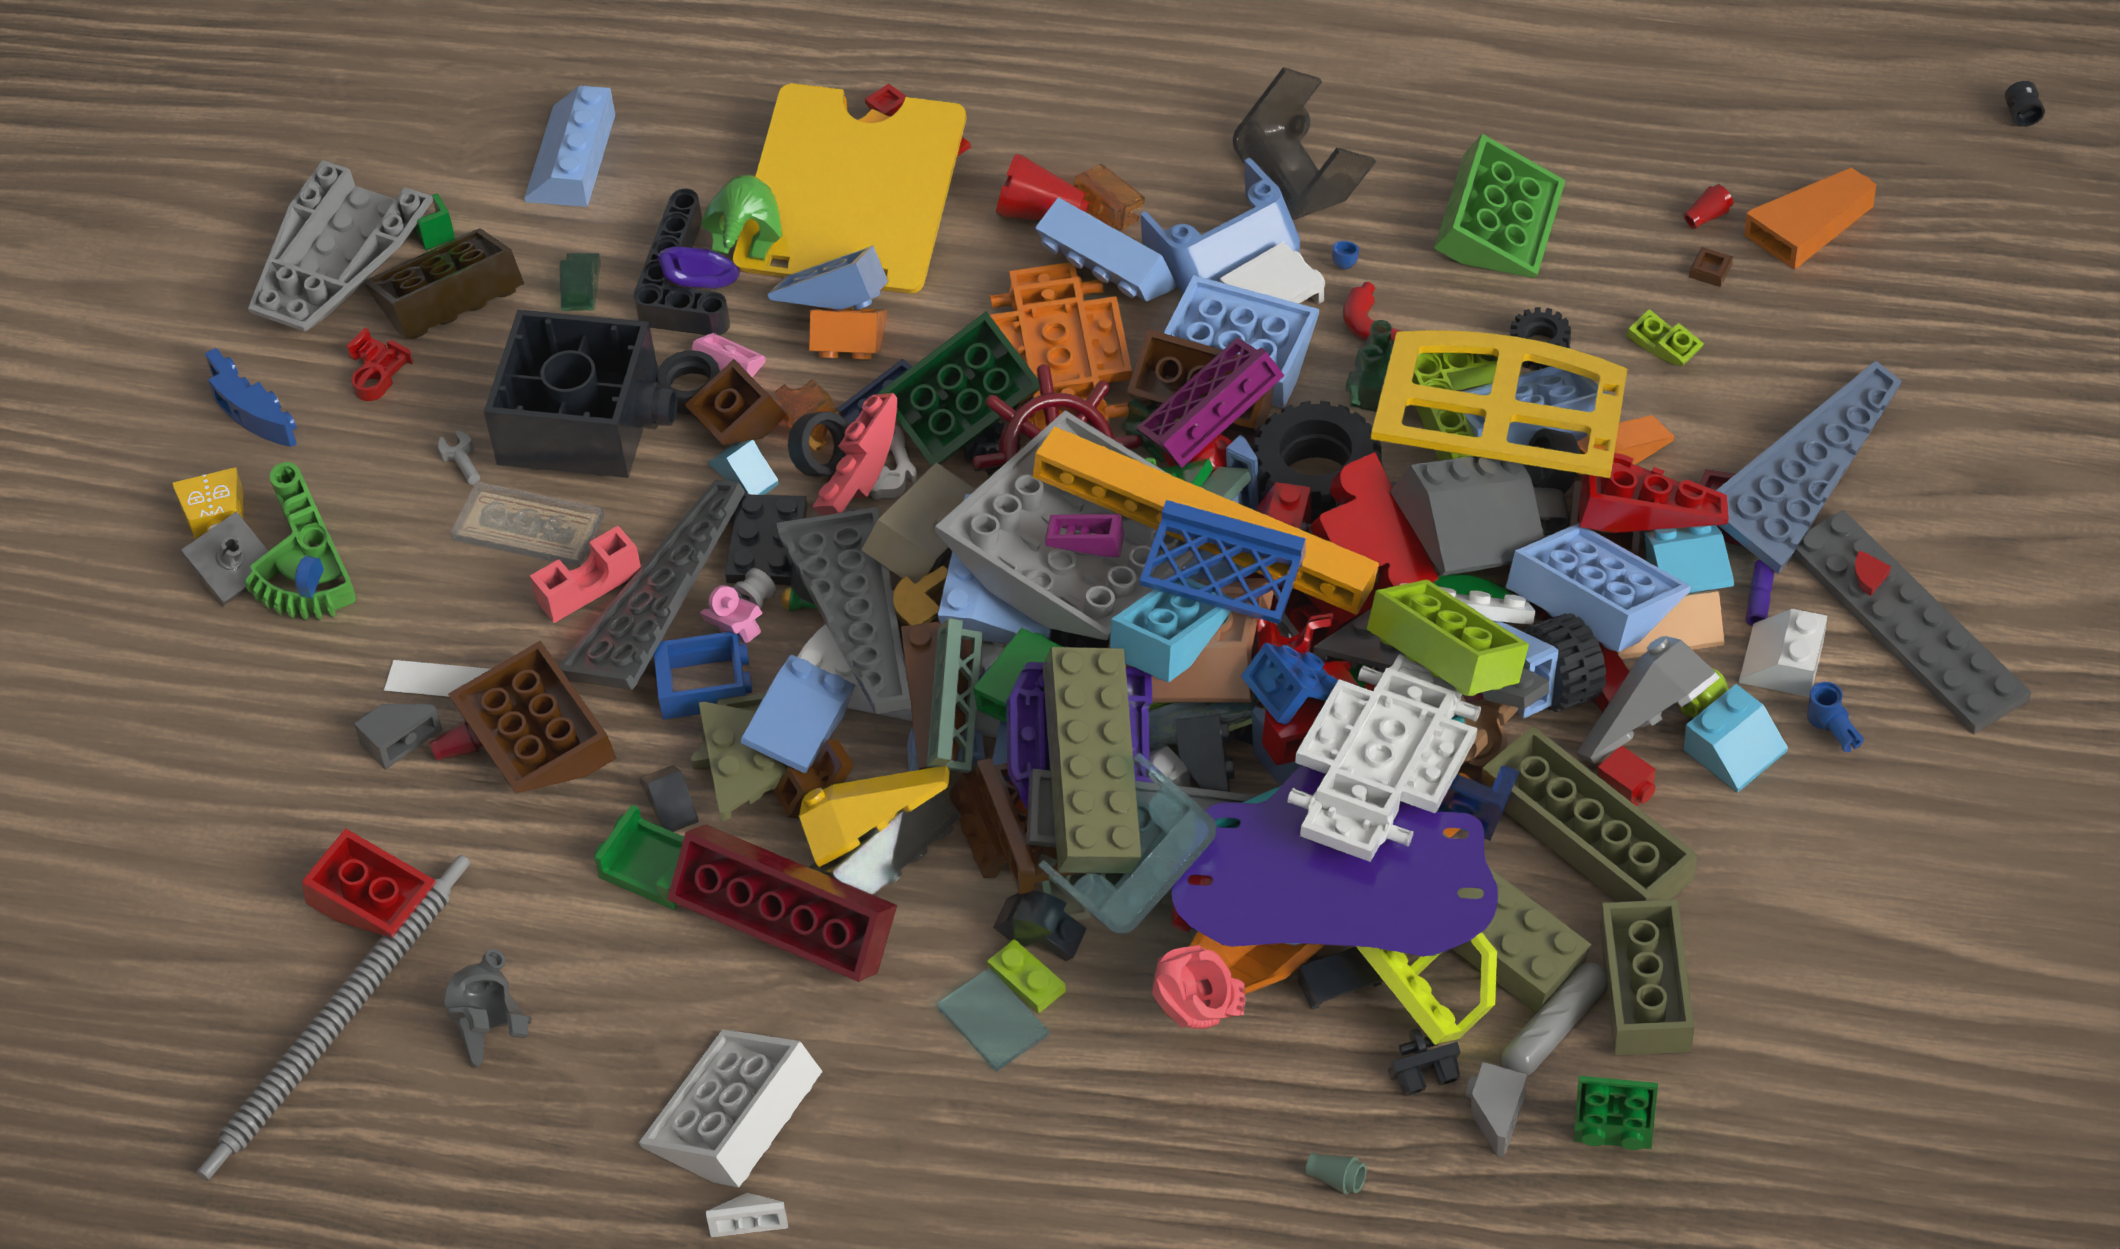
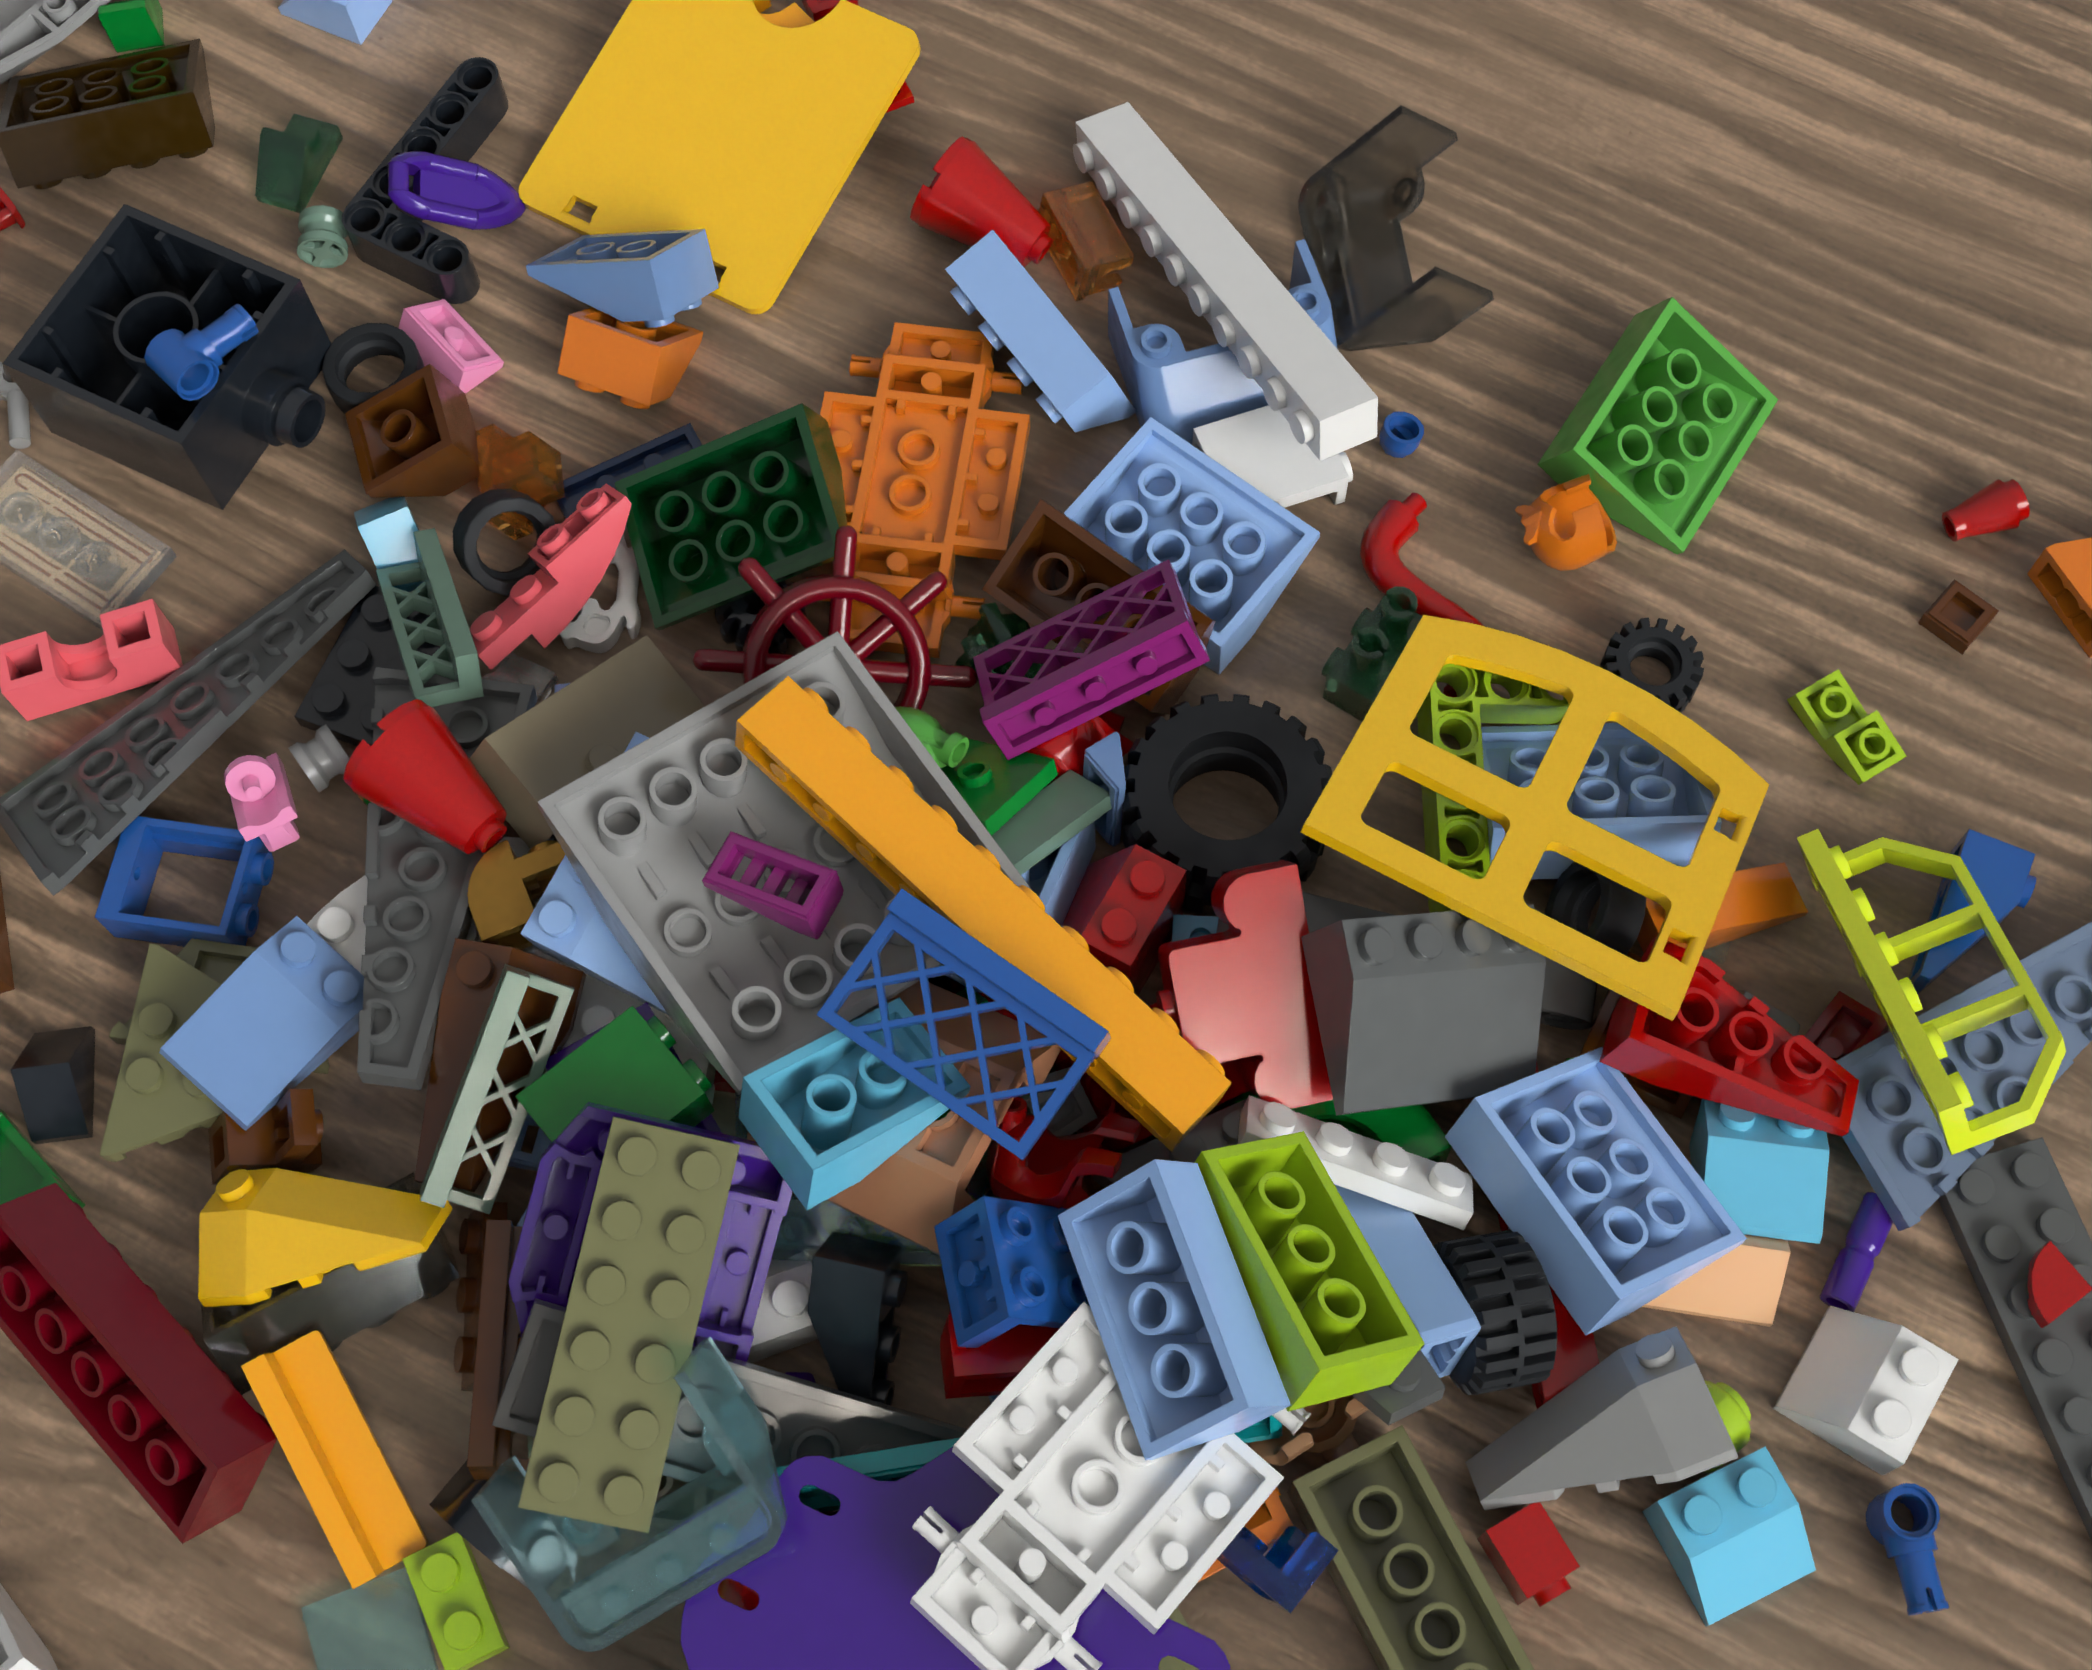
camera: 15 degrees right, 15 degrees up
(609, 375) = (192, 359): none -> blue pin
(619, 308) = (322, 237): none -> sand green wheel
(733, 205) = (549, 106): bright green piece -> none
(800, 491) = (443, 627): none -> sand green fence
(849, 555) = (427, 780): none -> red cone
(928, 919) = (335, 1457): none -> light orange panel
(1208, 188) = (1227, 283): none -> white brick
(1387, 663) = (1172, 1309): none -> light blue slope
(1463, 273) = (1568, 526): none -> orange helmet
(1727, 442) = (1898, 999): none -> neon yellow plate
(1767, 406) = (2004, 882): none -> blue slope

